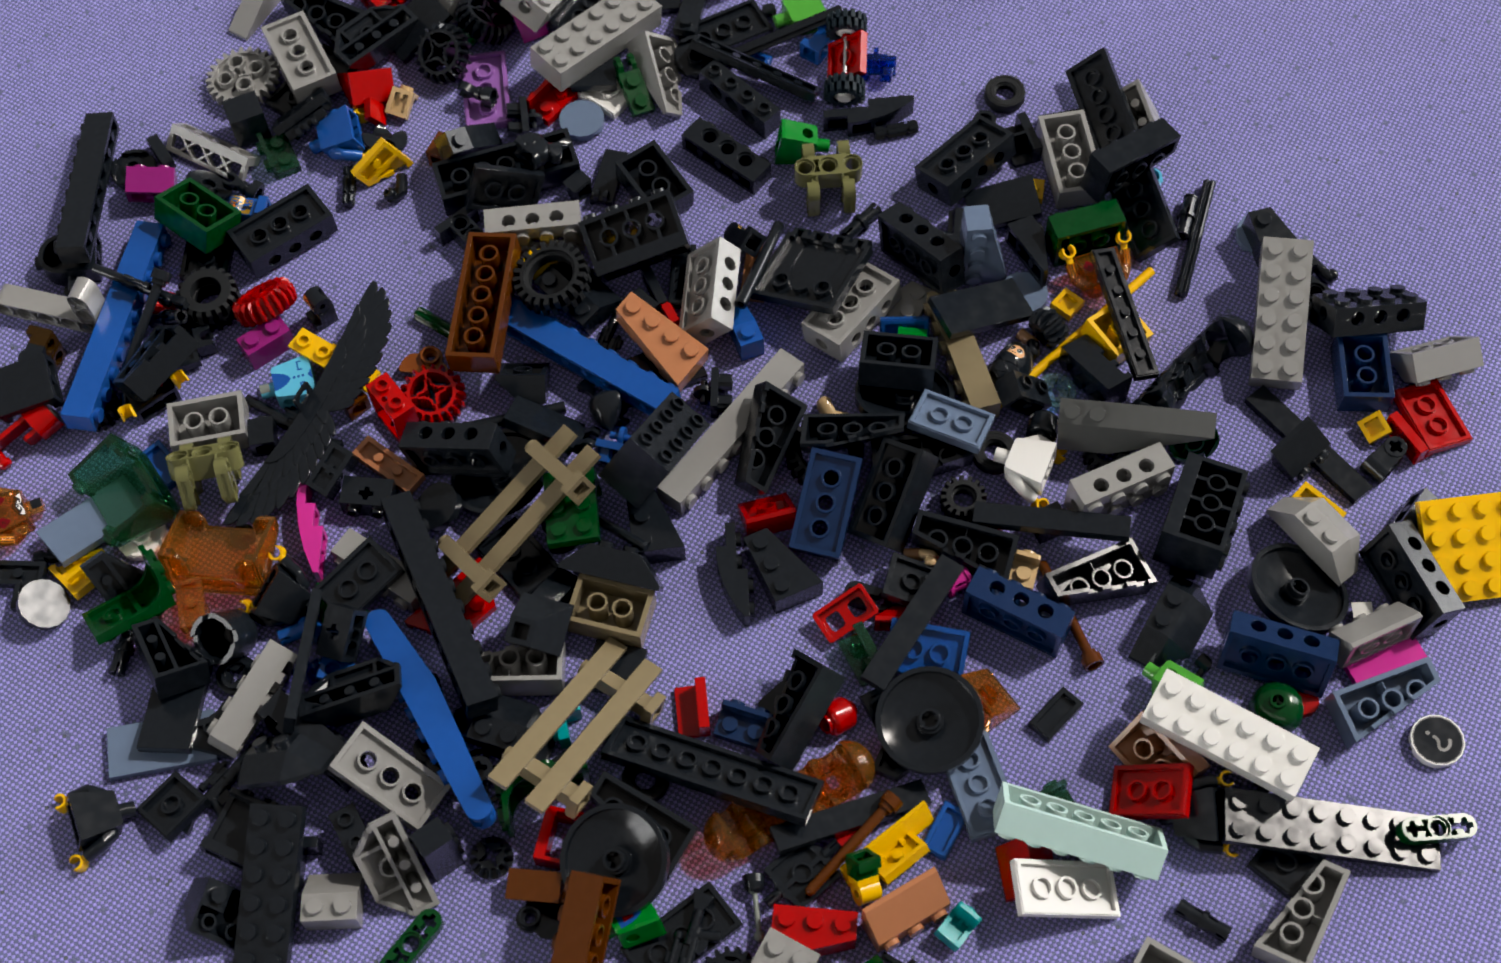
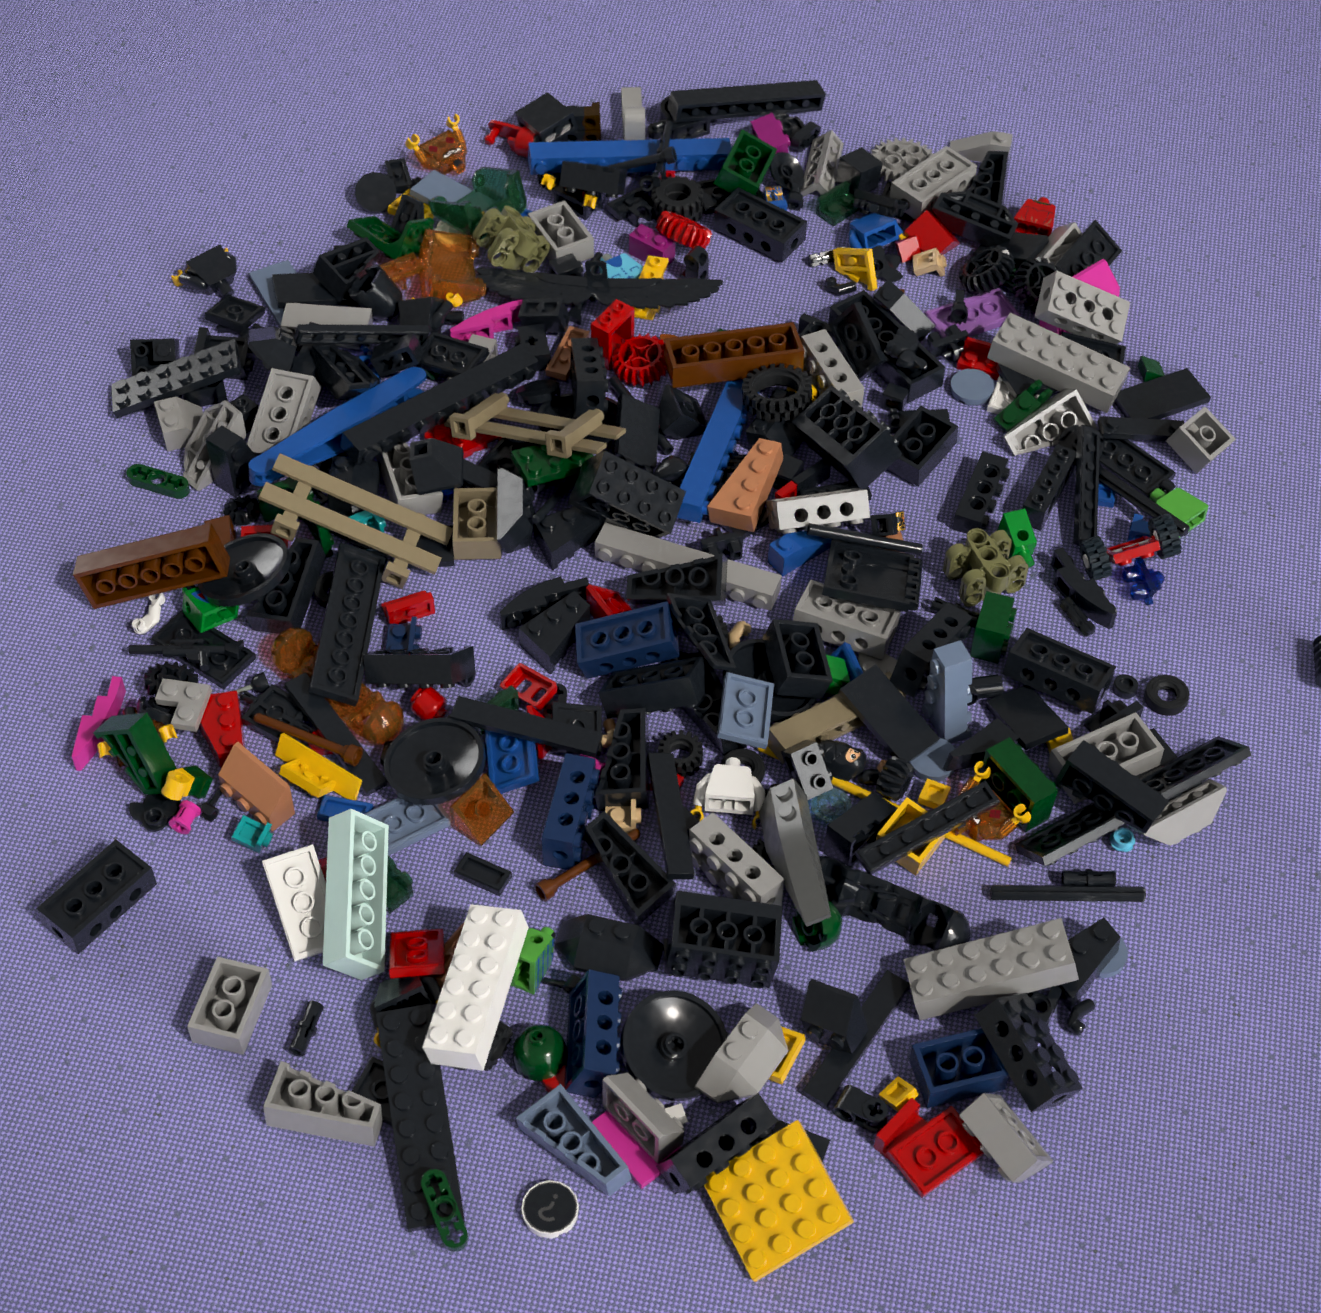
camera: 70 degrees right, 10 degrees down
(864, 876) = (281, 749): leg -> none
(897, 185) = (993, 627): none -> dark green brick

